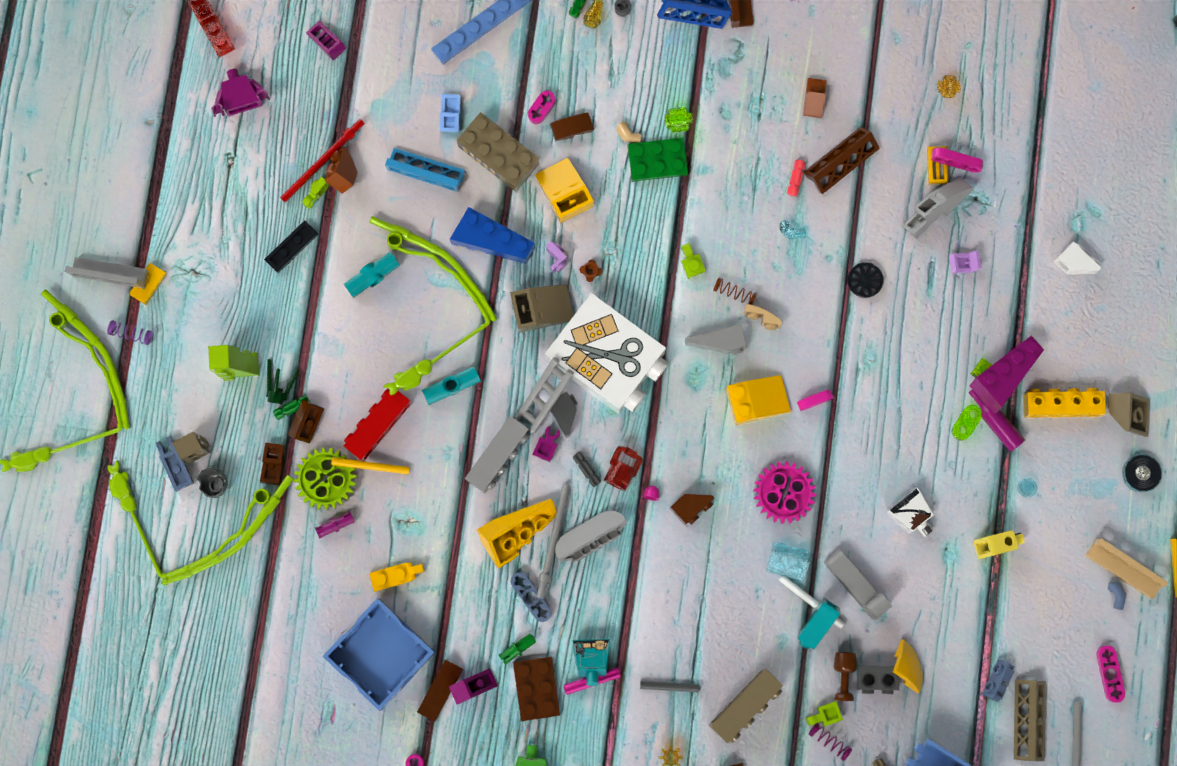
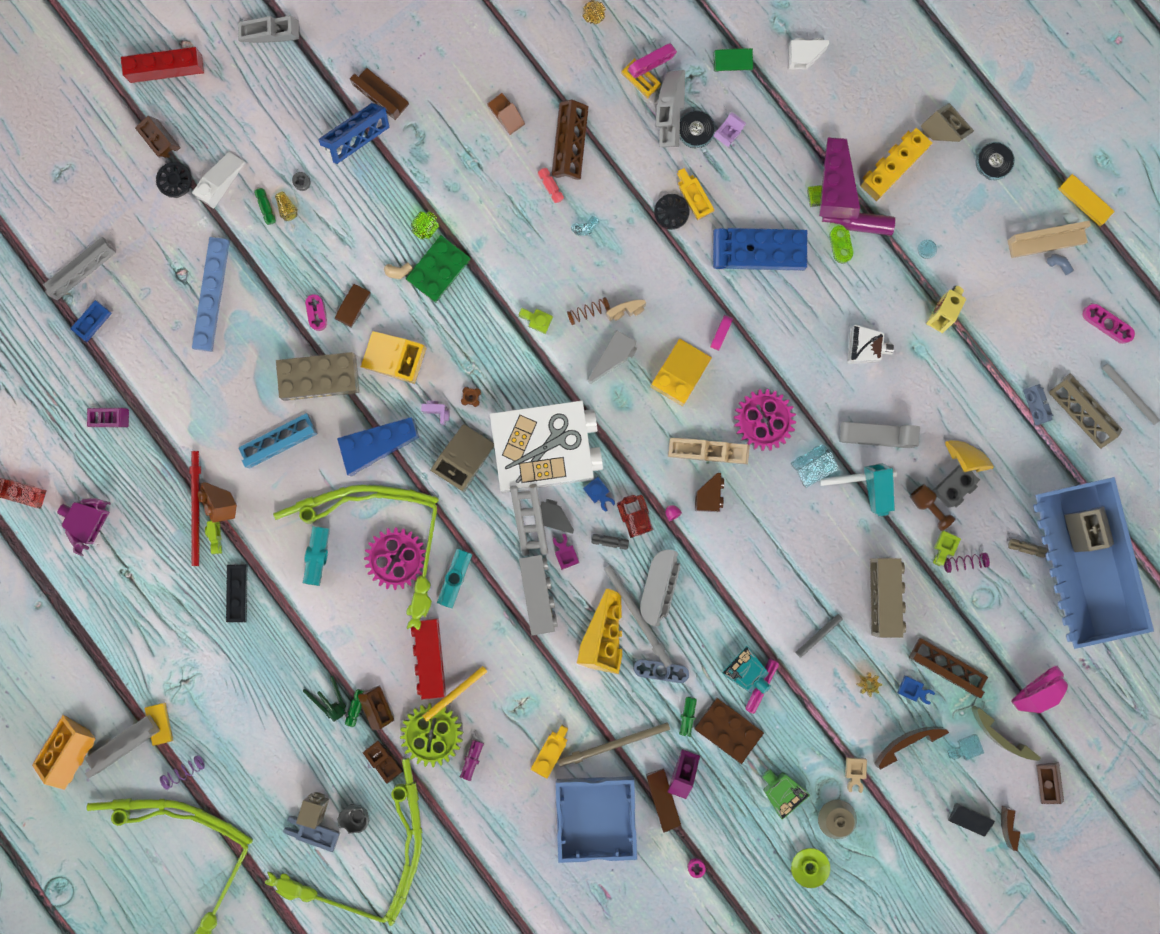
camera: 45 degrees left, 5 degrees up
(65, 239) = (63, 753): none -> light orange slope
(229, 362) = (278, 722): lime wedge -> none
(411, 598) = (578, 756): none -> dark tan bar
(419, 314) = (379, 549): none -> dark pink gear
(450, 113) = (253, 381): light blue slope -> none
(613, 425) = (597, 492): none -> blue plate
(722, 474) = (708, 450): none -> tan slope
(893, 284) = (694, 195): none -> yellow hinge
(909, 376) = (771, 249): none -> blue hinge
(941, 239) = (696, 129): none -> black tile
(1017, 215) = (733, 59): none -> green hinge

